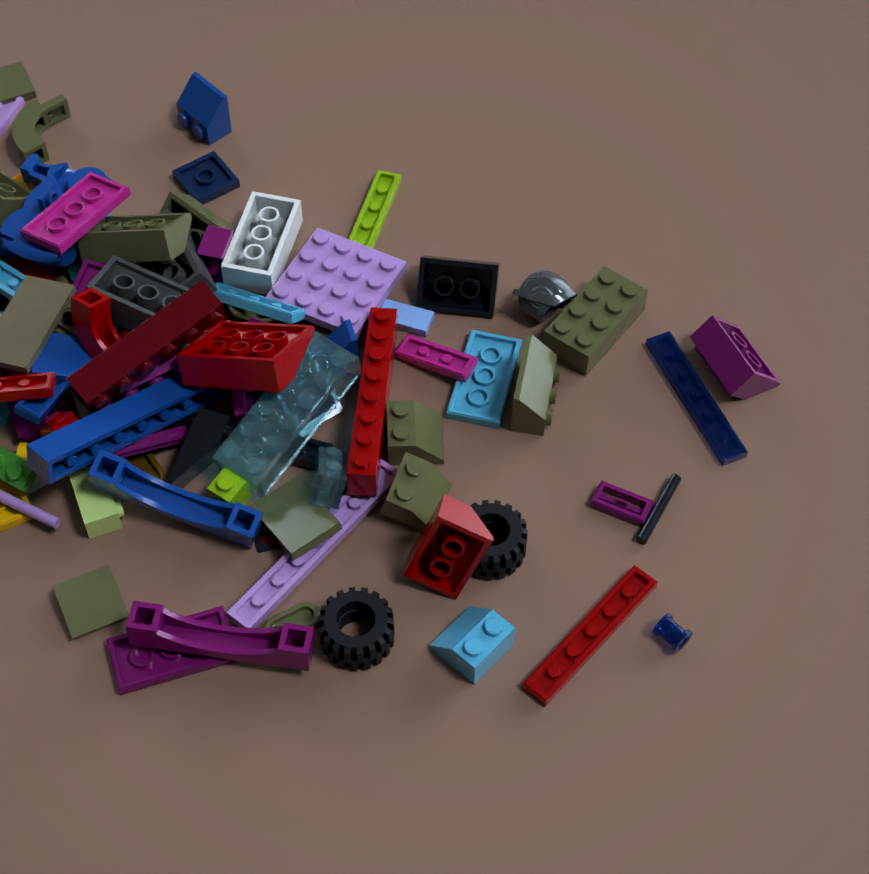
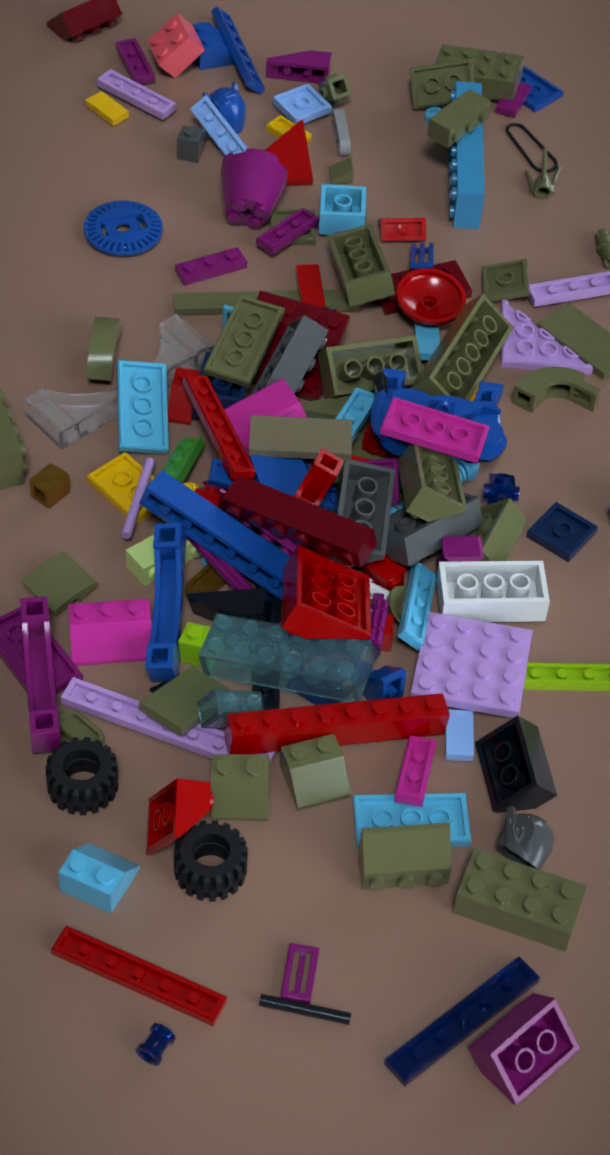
camera: 70 degrees right, 5 degrees down
(144, 200) = (500, 487): none -> clear blue brick
(181, 566) = (109, 631): none -> dark pink slope

